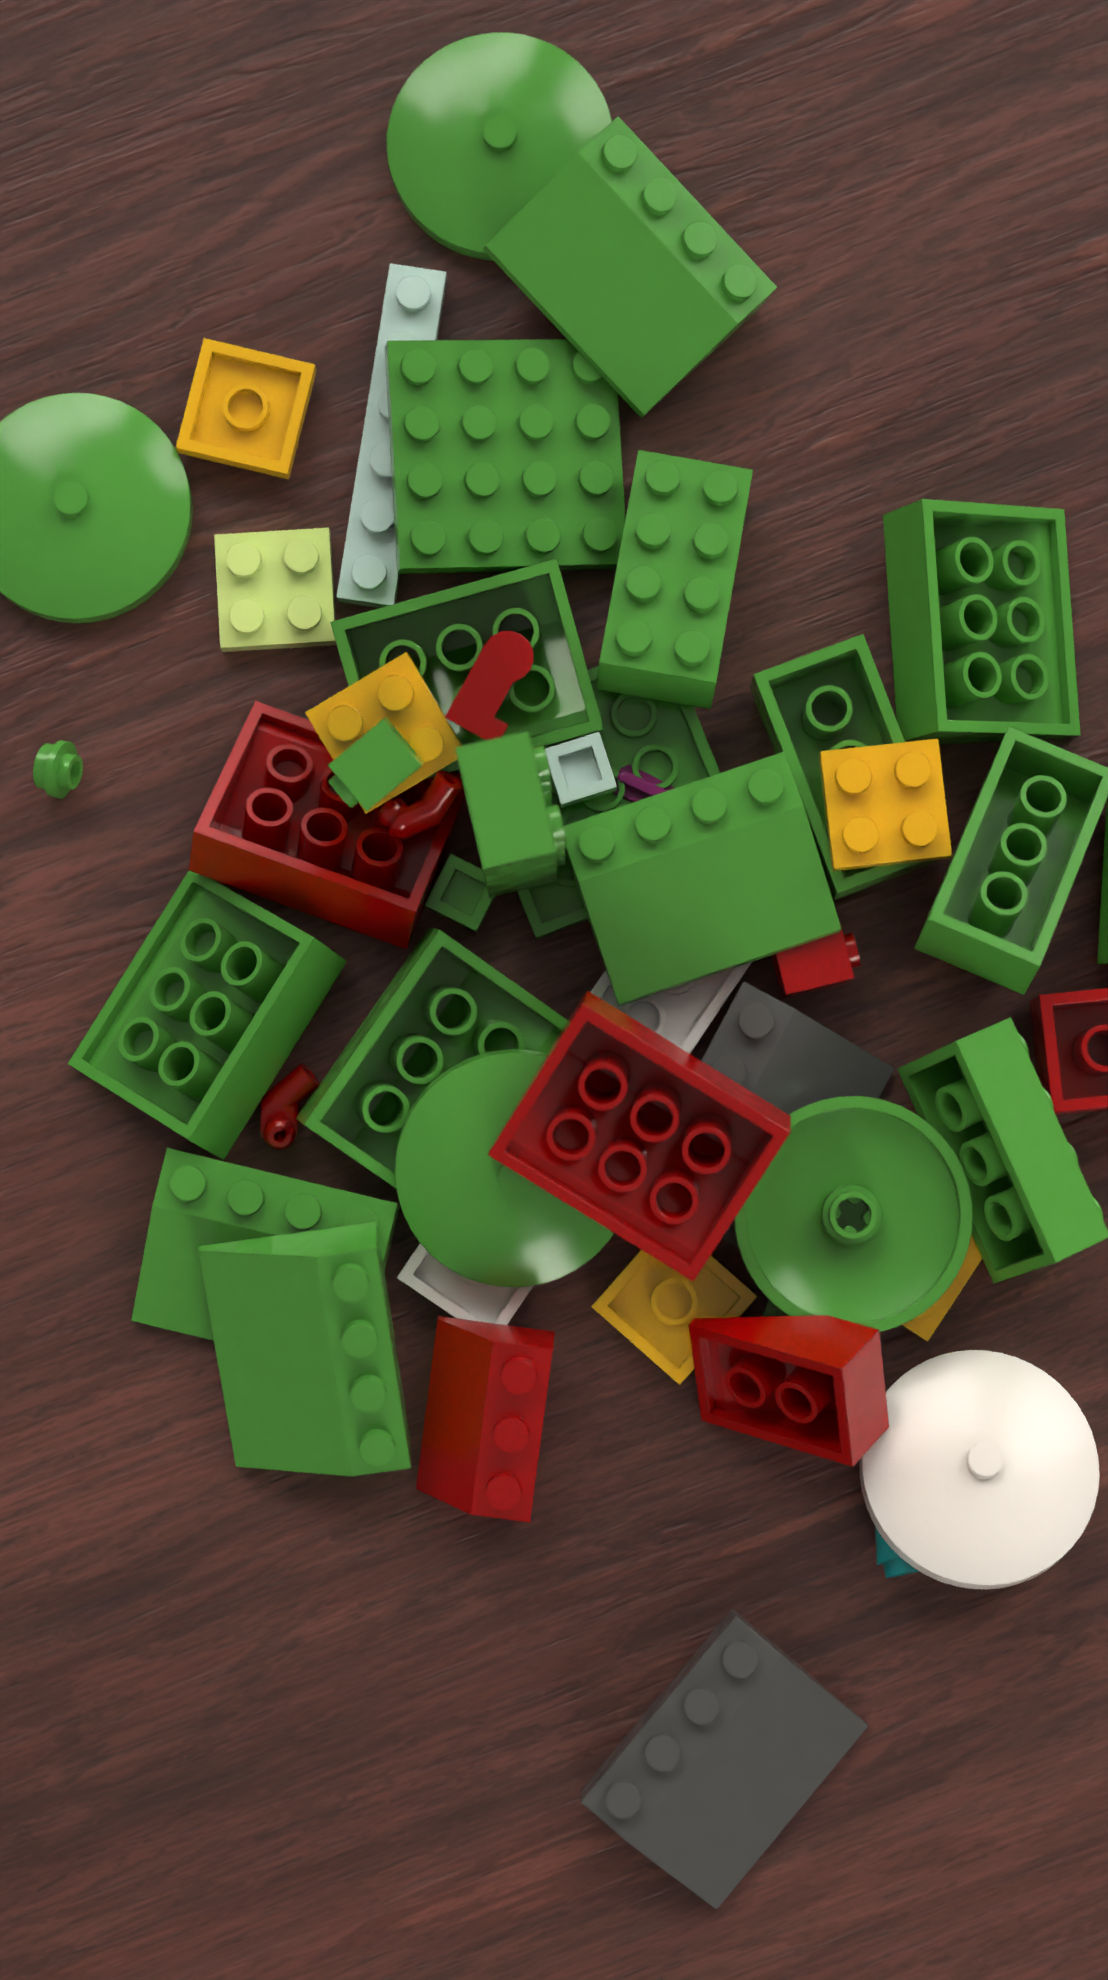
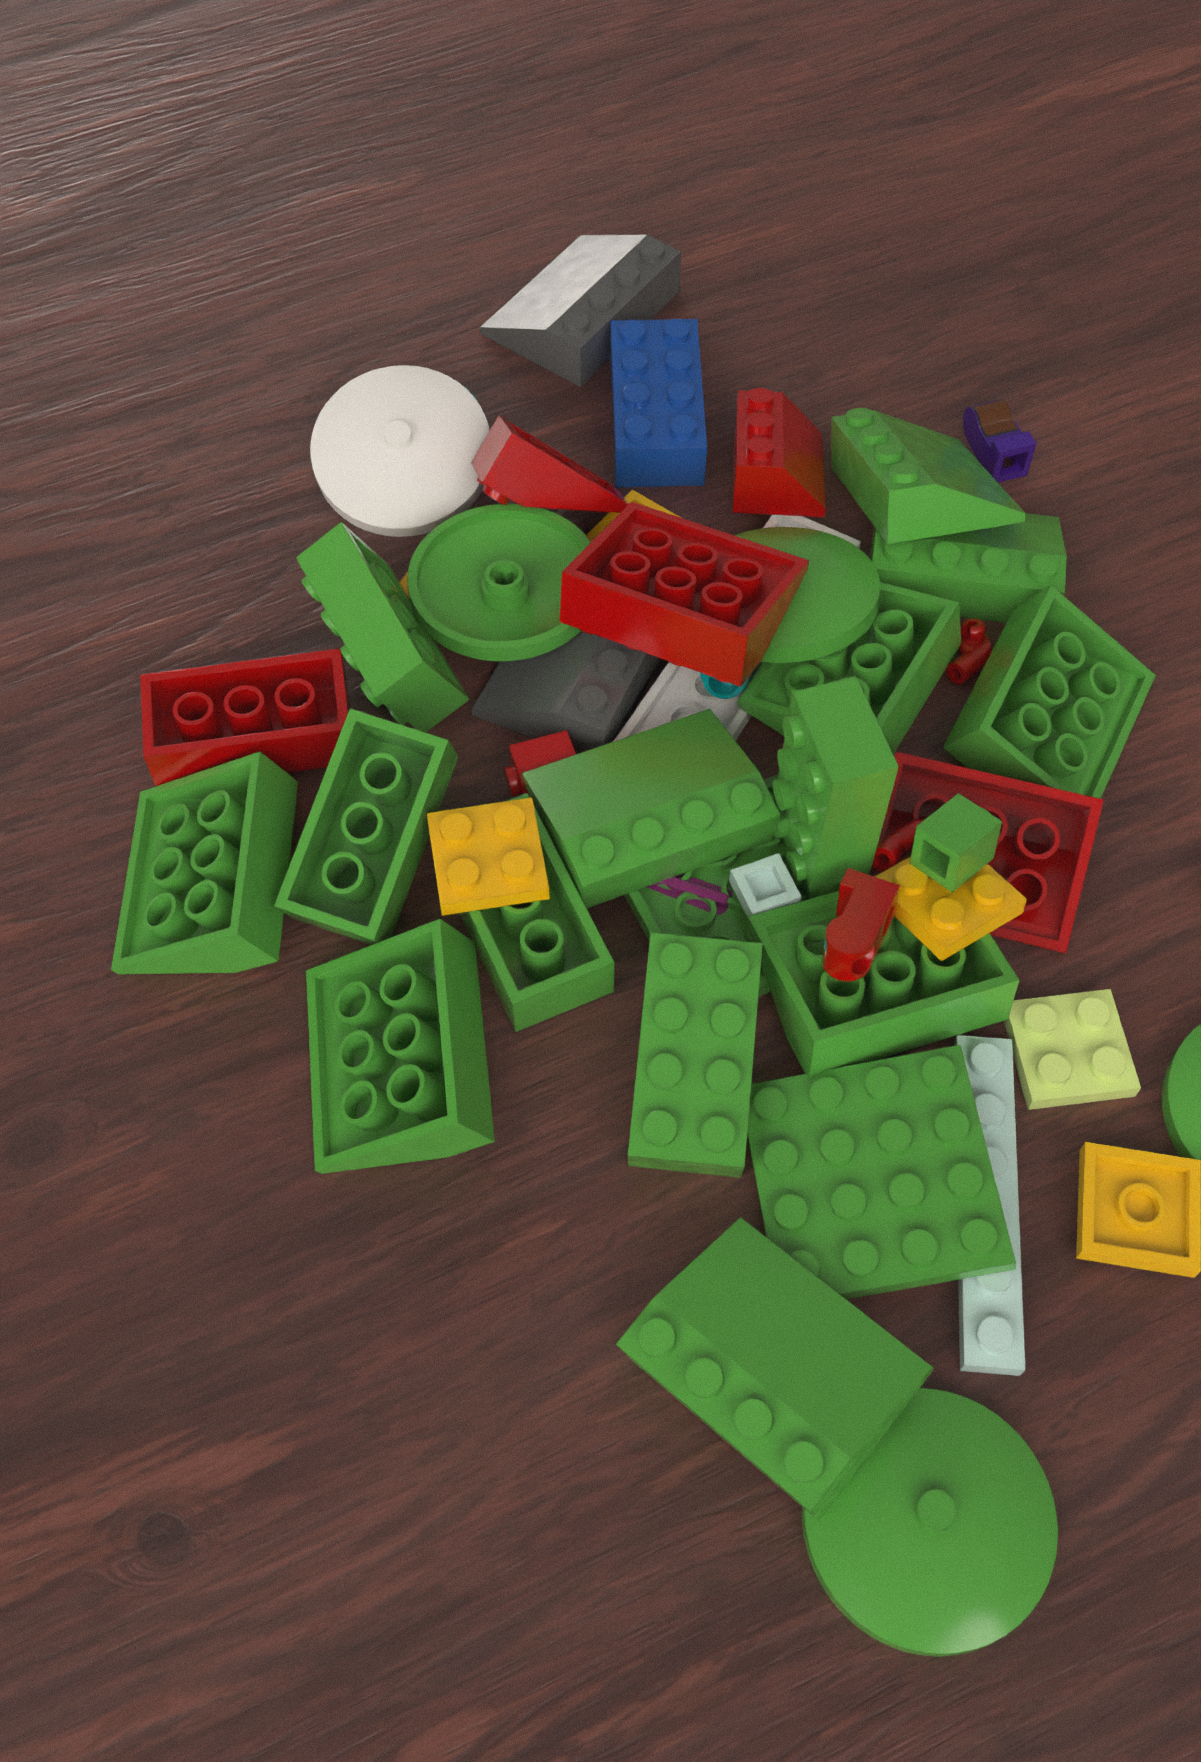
camera: 175 degrees right, 25 degrees down
(188, 1451) = (996, 436): none -> dark purple leg
(635, 1541) = (657, 403): none -> blue brick

